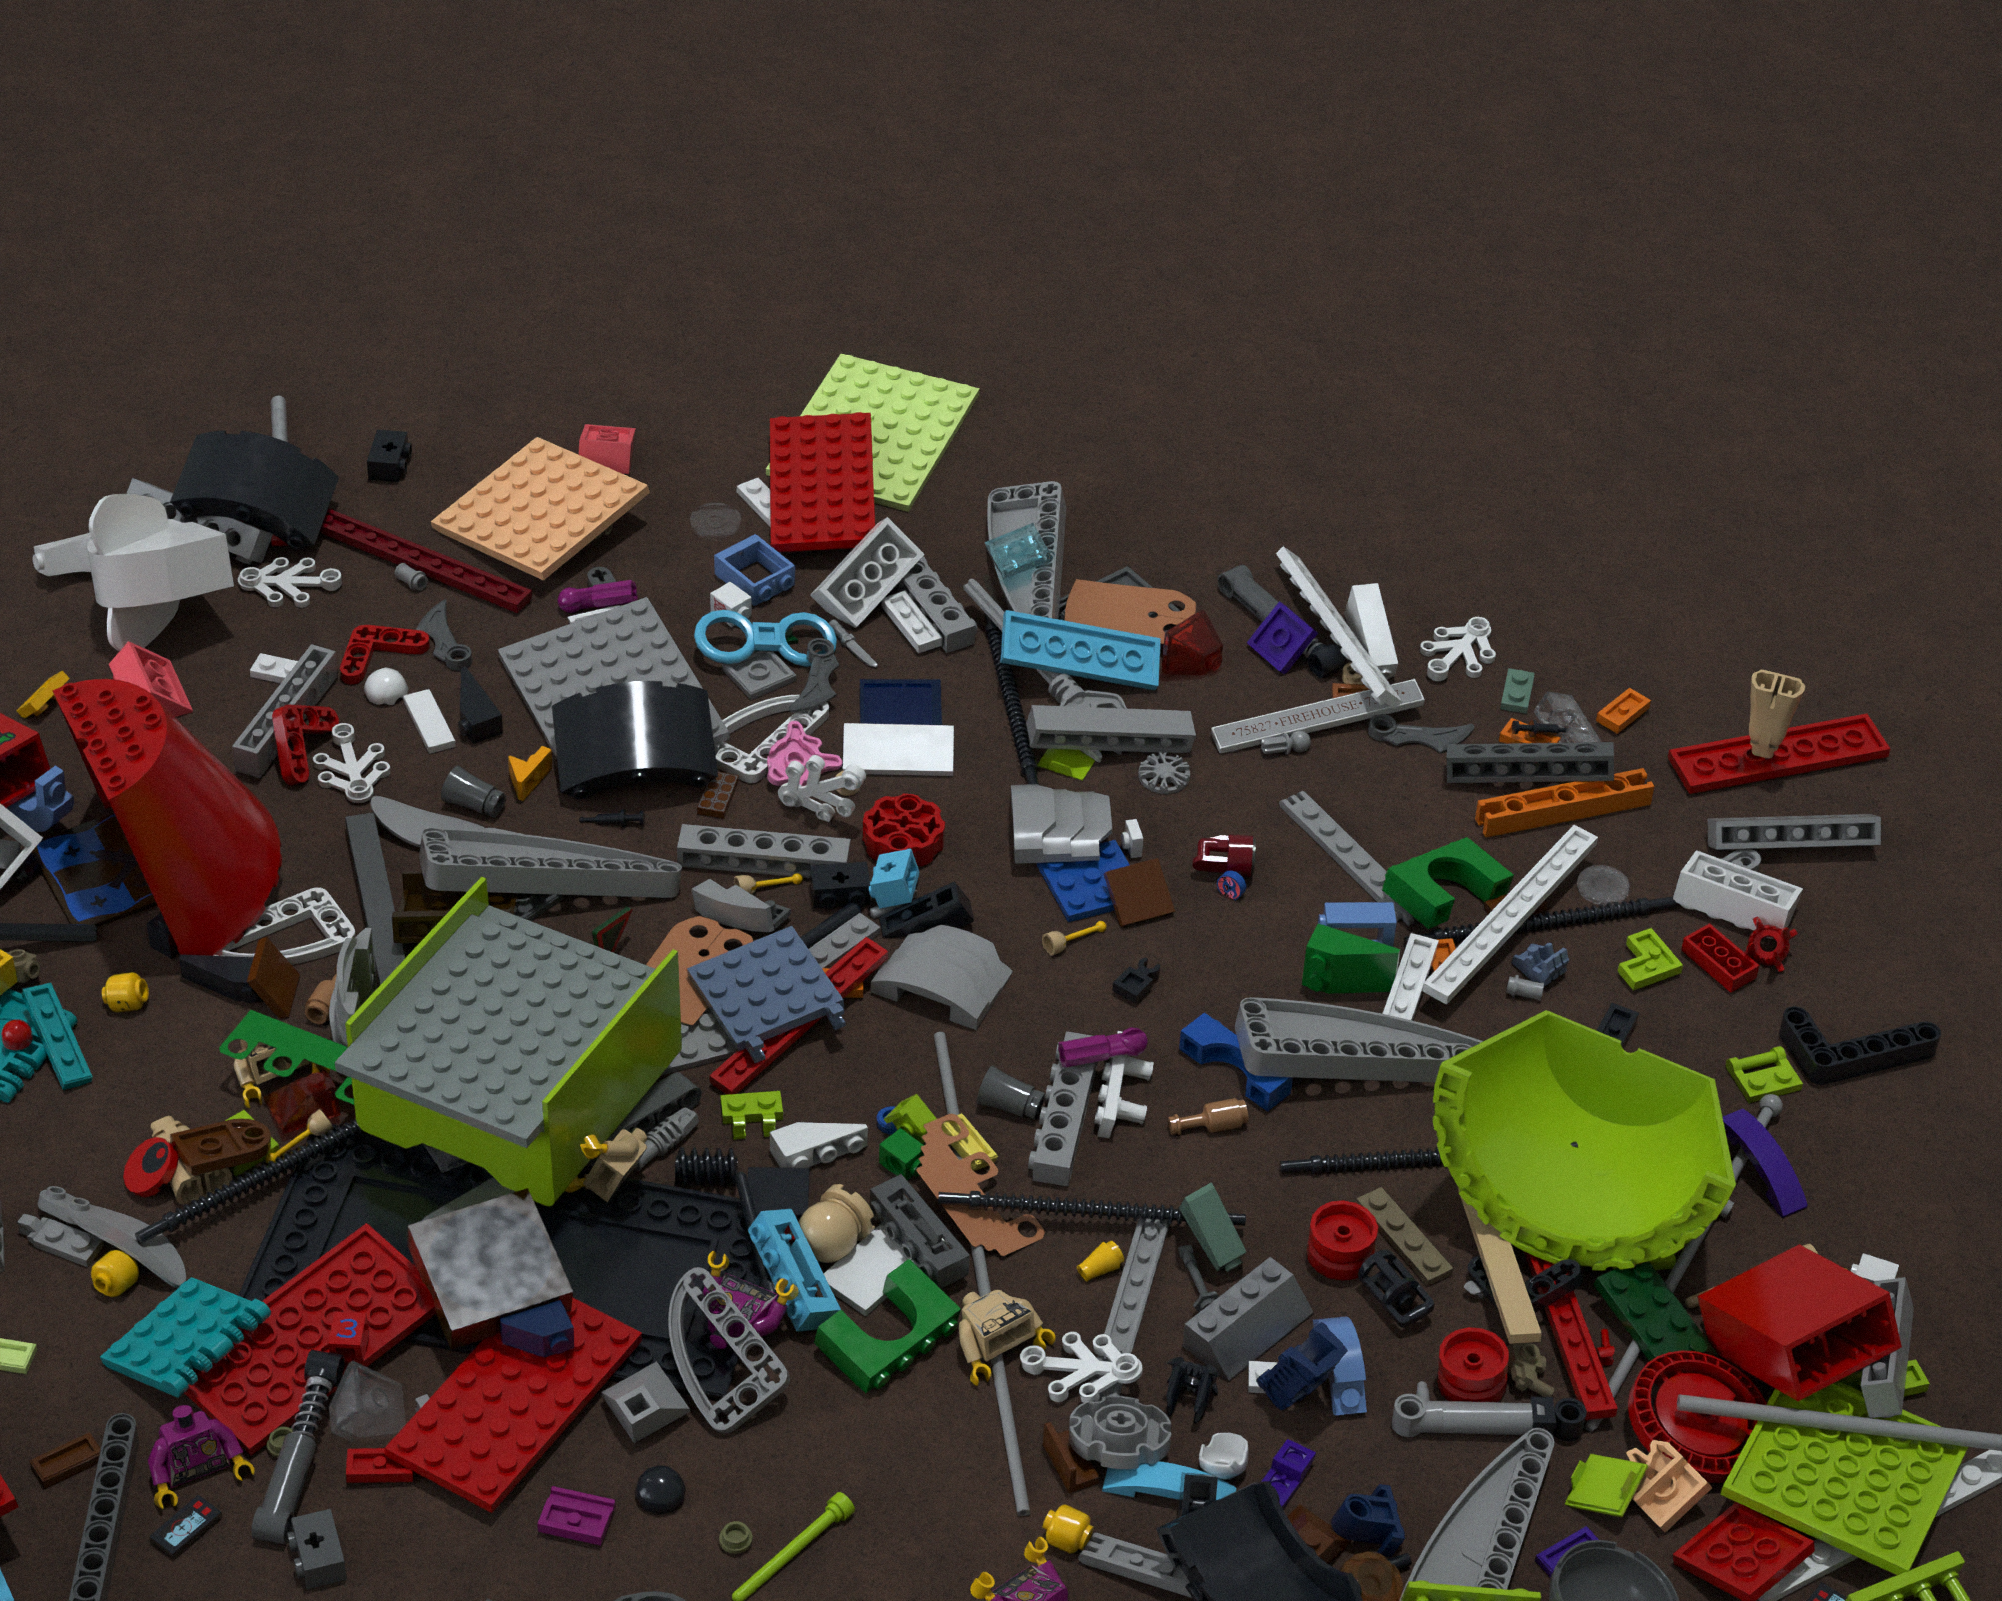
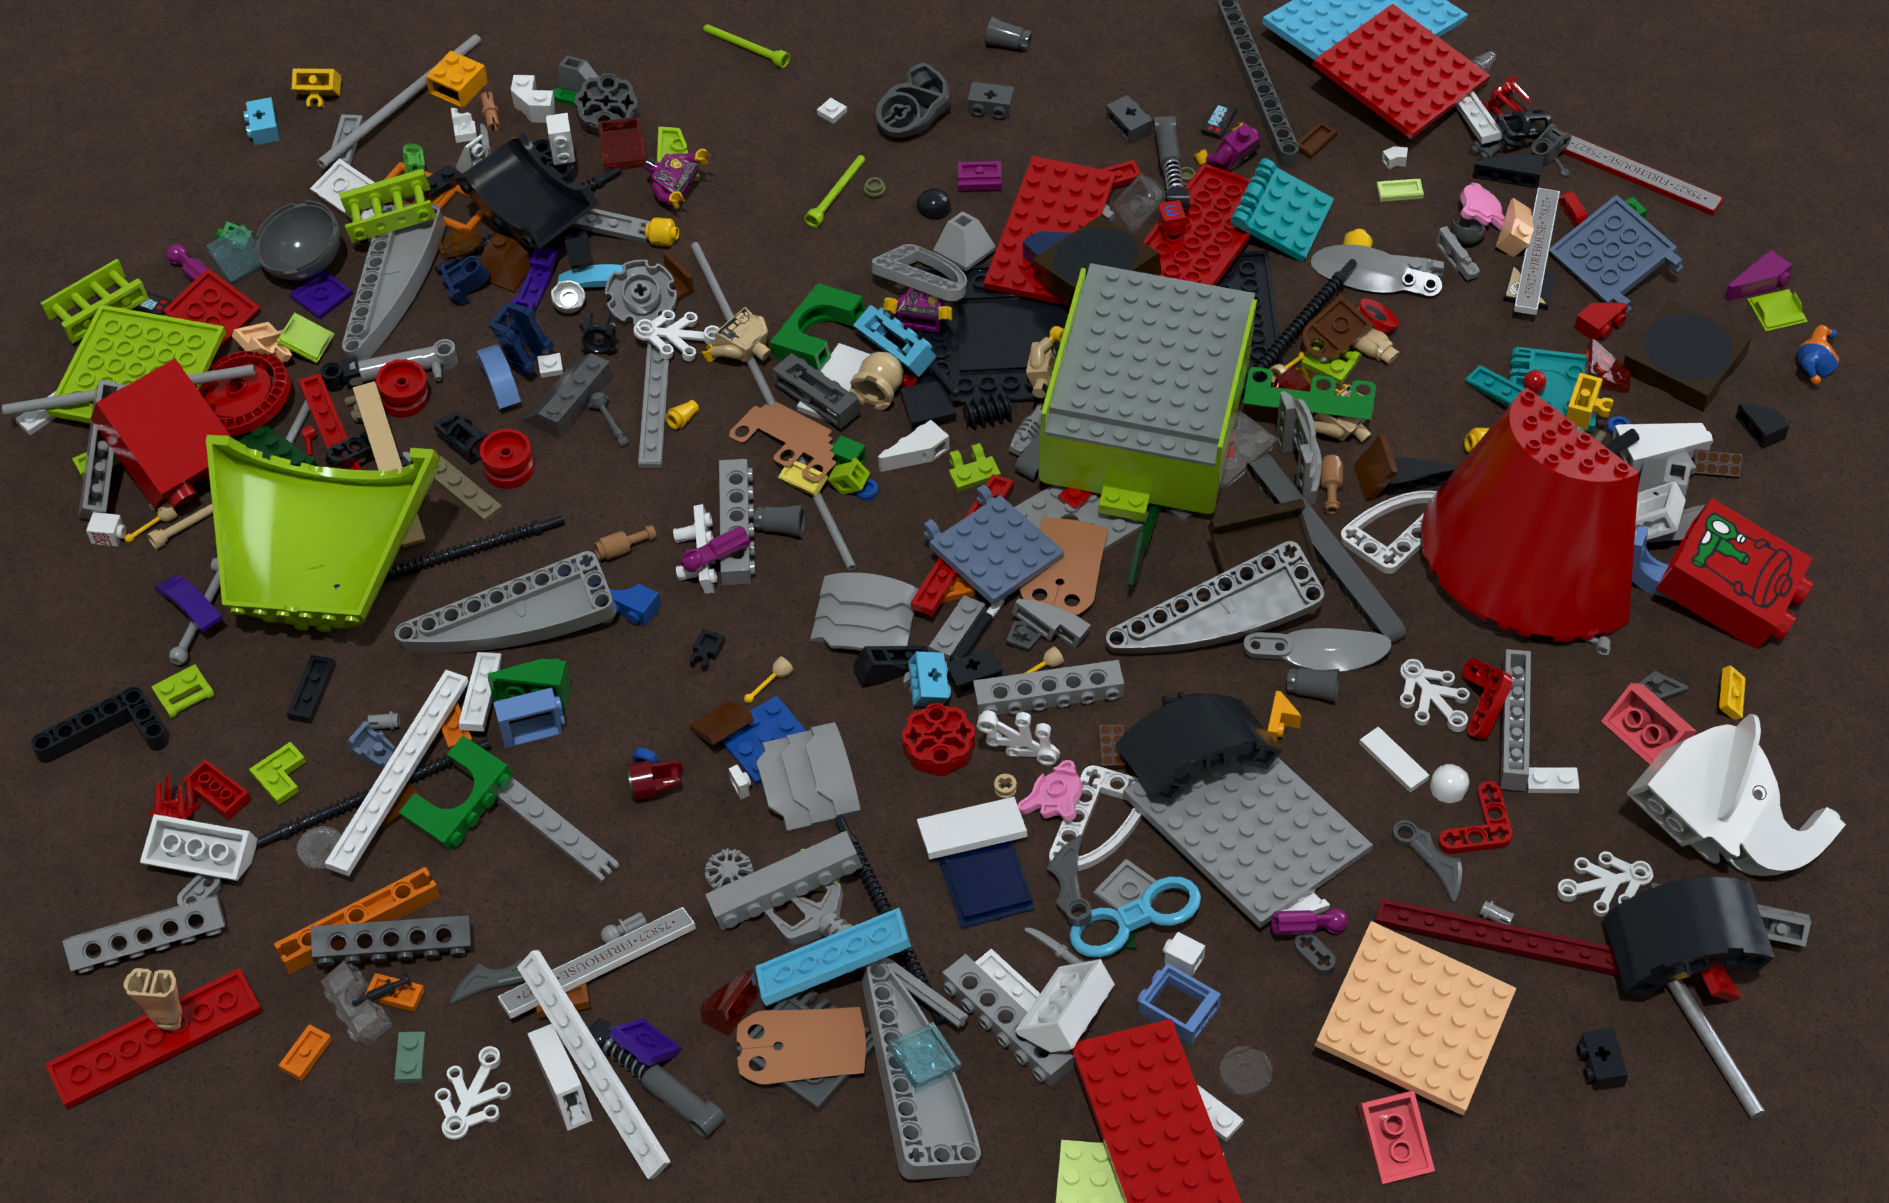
camera: 170 degrees right, 10 degrees up
(478, 713) = (1355, 769): black slope -> none
(976, 1200) = (609, 457): black hose -> none
(1213, 1228) = (604, 431): sand green slope -> none

